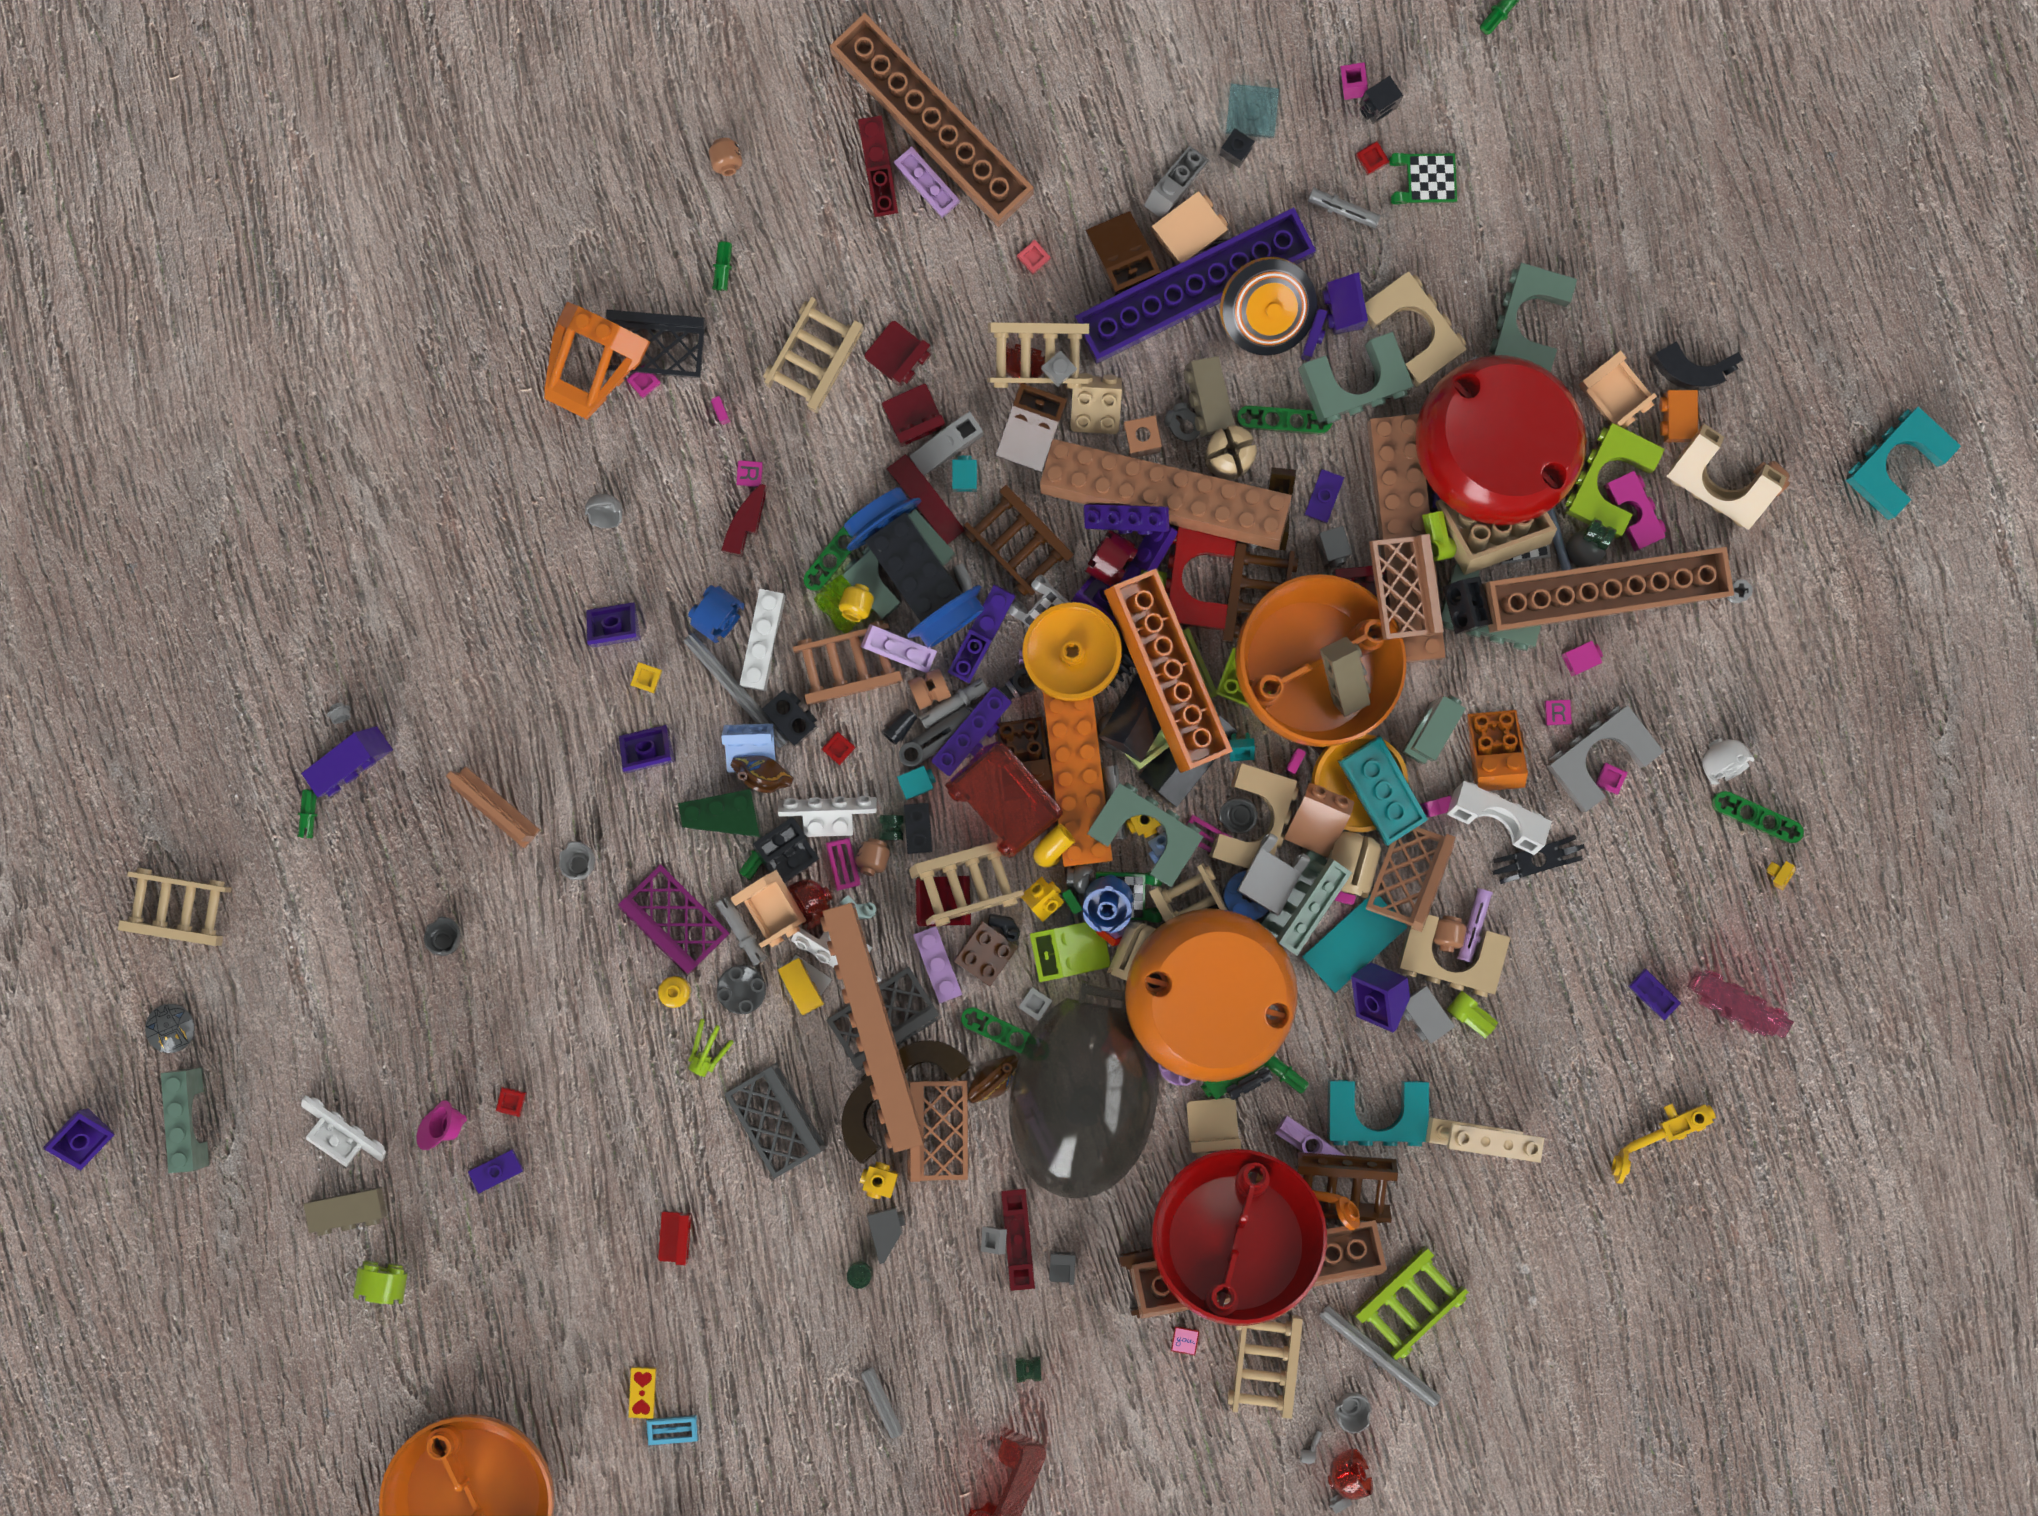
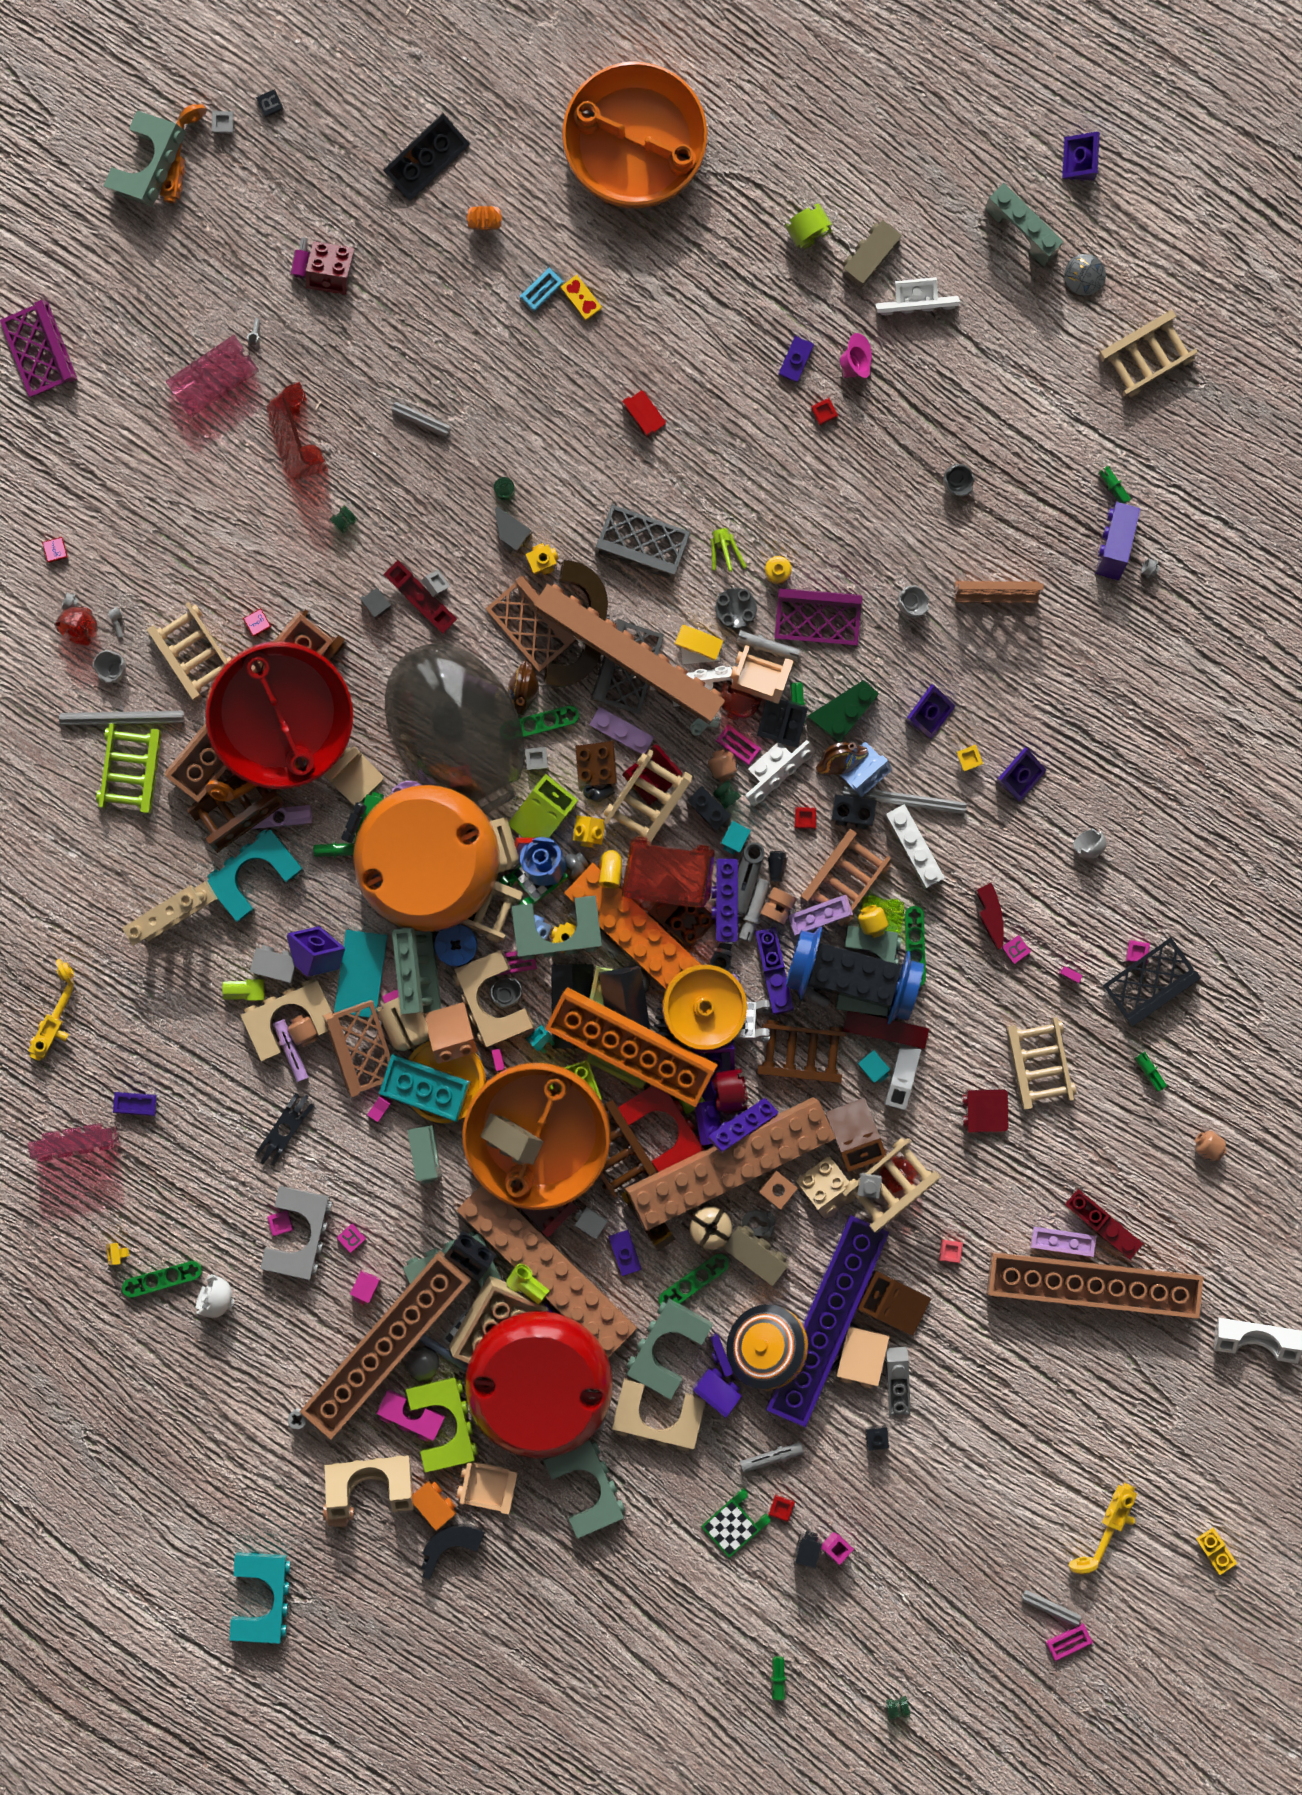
camera: 140 degrees right, 0 degrees up
(612, 336) = (1185, 961): orange windscreen -> none
(715, 613) = (959, 838): blue brick -> none
(913, 415) = (941, 1078): dark red bracket -> none
(1071, 901) = (567, 844): green tile -> none
(1252, 110) = (888, 1472): clear light blue tile -> none
(1269, 878) = (450, 966): light grey flag -> none
(1425, 588) = (506, 1241): nougat fence -> none
(1497, 750) = (371, 1178): orange slope -> none
(1526, 828) = (309, 1142): white arch -> none
(1599, 534) = (421, 1377): clear green wheel -> none

